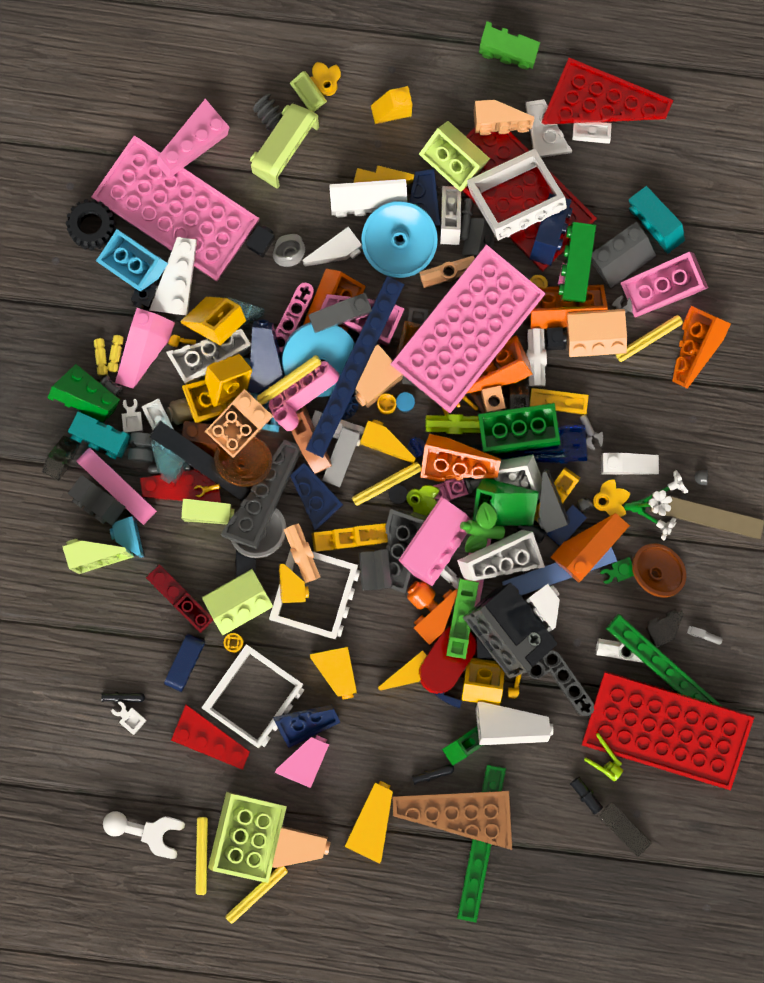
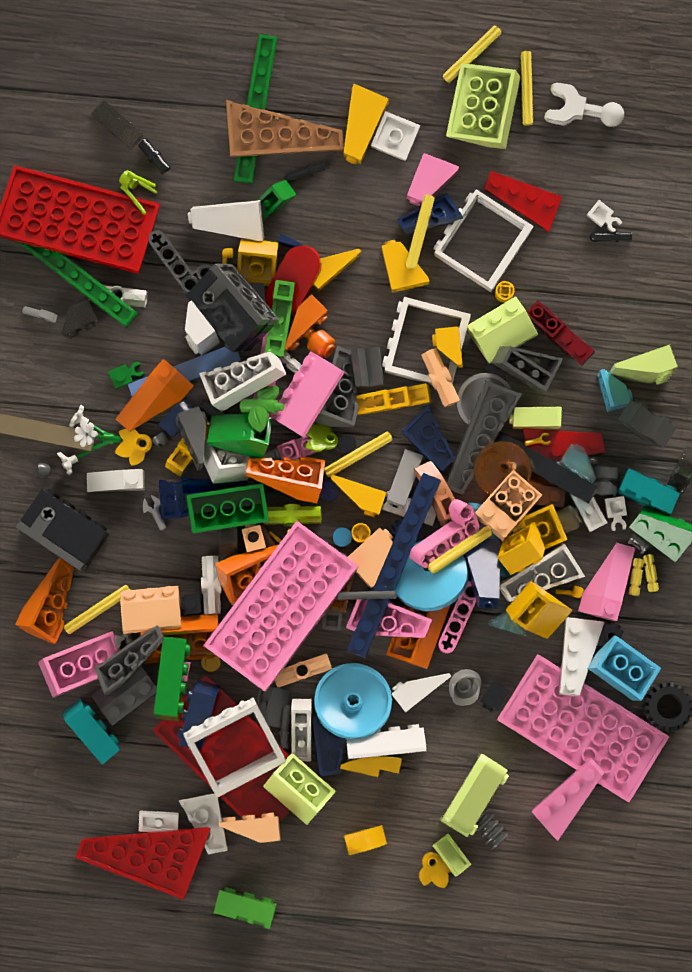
camera: 175 degrees left, 0 degrees up
(116, 486) = (628, 442): bright pink beam -> none
(184, 662) = (552, 271): dark blue beam -> none
(211, 563) = (528, 367): none -> dark grey wedge
(299, 847) = (431, 96): light nougat slope -> none
(317, 704) = (420, 231): none -> light yellow axle
(338, 809) = (395, 136): none -> white plate
(340, 313) = (410, 616): dark grey slope -> none
(382, 335) = (366, 595): none -> dark grey bar
(563, 401) = (188, 542): yellow plate -> none
(623, 278) = (125, 663): none -> dark grey wedge
(664, 565) = (77, 378): dark orange dish -> none
(678, 409) = (66, 533): none -> black piece

